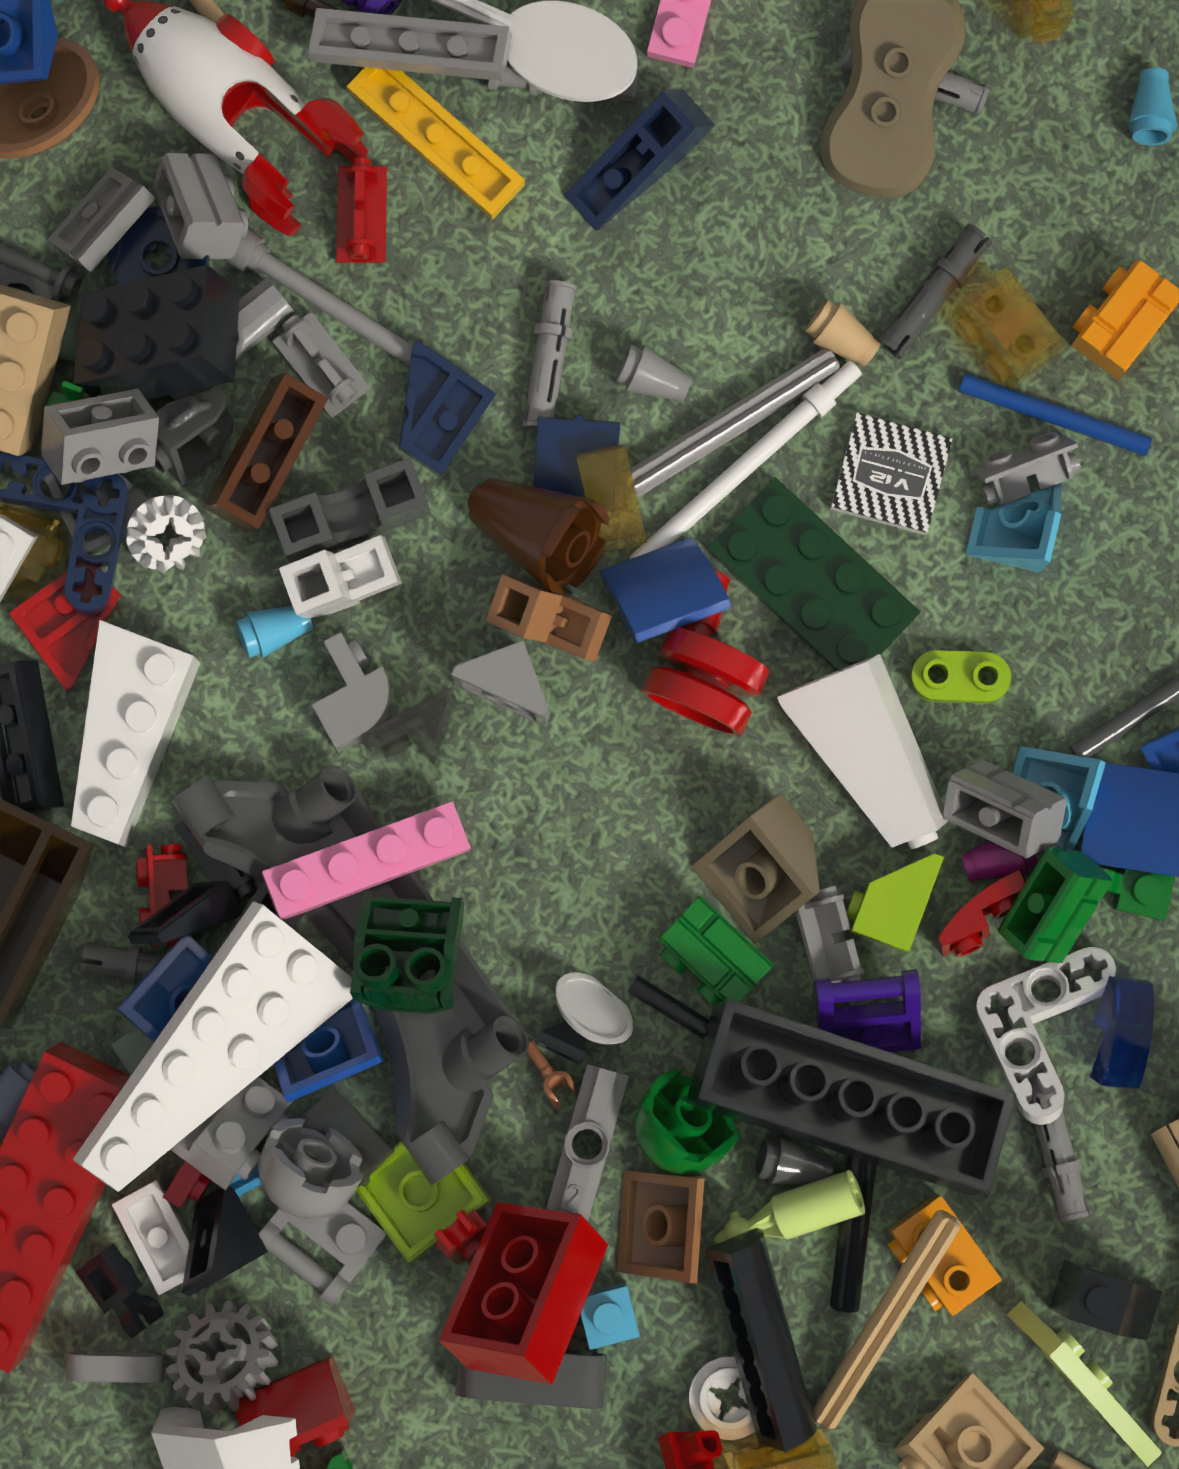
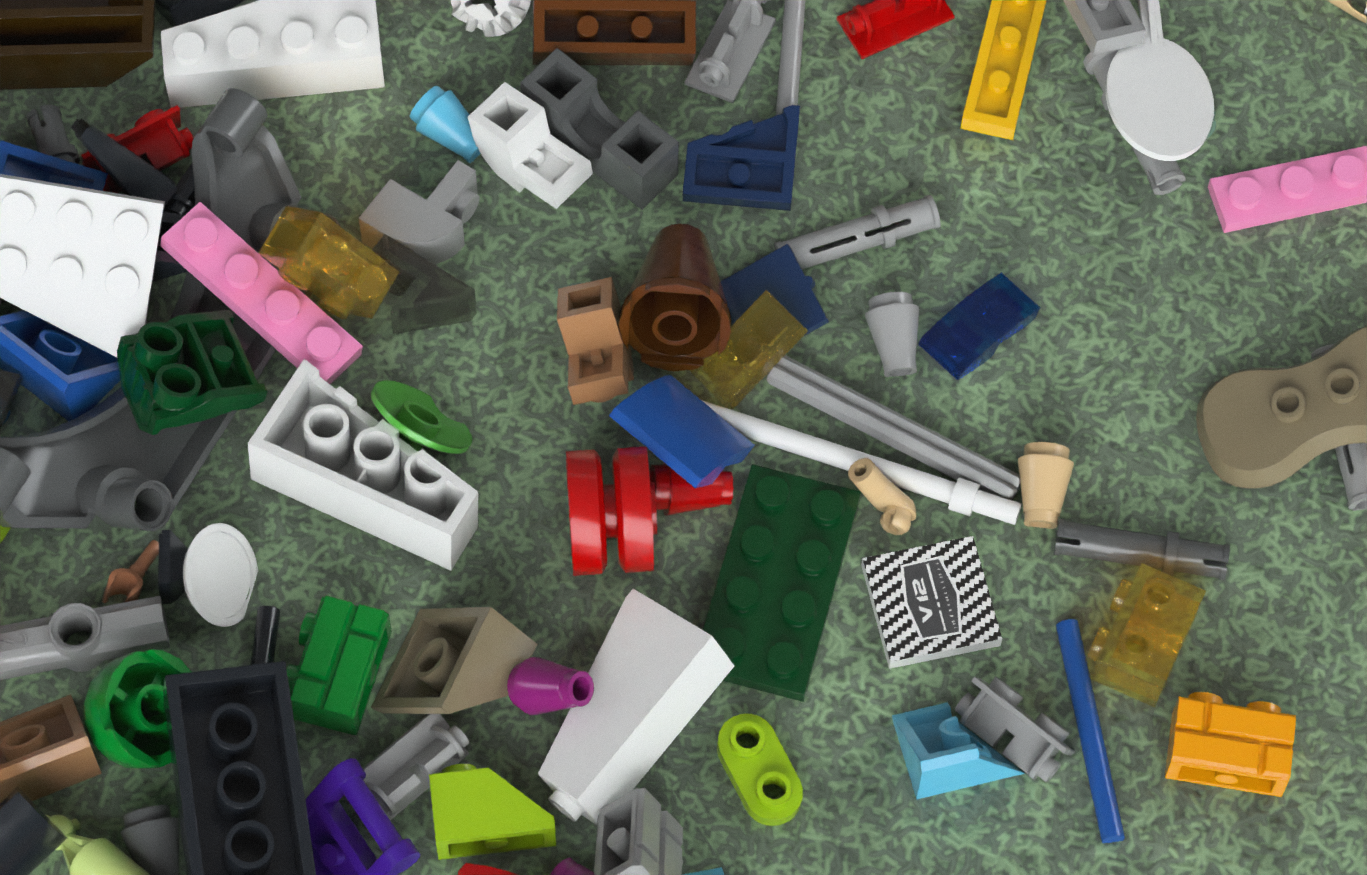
camera: 60 degrees right, 20 degrees down
(373, 794) = (328, 262): none -> clear yellow brick
(505, 680) = (514, 334): light grey slope -> none
(539, 787) = (419, 419): none -> bright green dish
(551, 862) = (360, 471): none -> white wedge
(640, 156) = (1111, 219): dark blue slope -> none
(680, 306) = (978, 325): none -> clear blue slope
(785, 460) = (884, 496): none -> tan arm
(826, 804) = (546, 686): none -> magenta cone

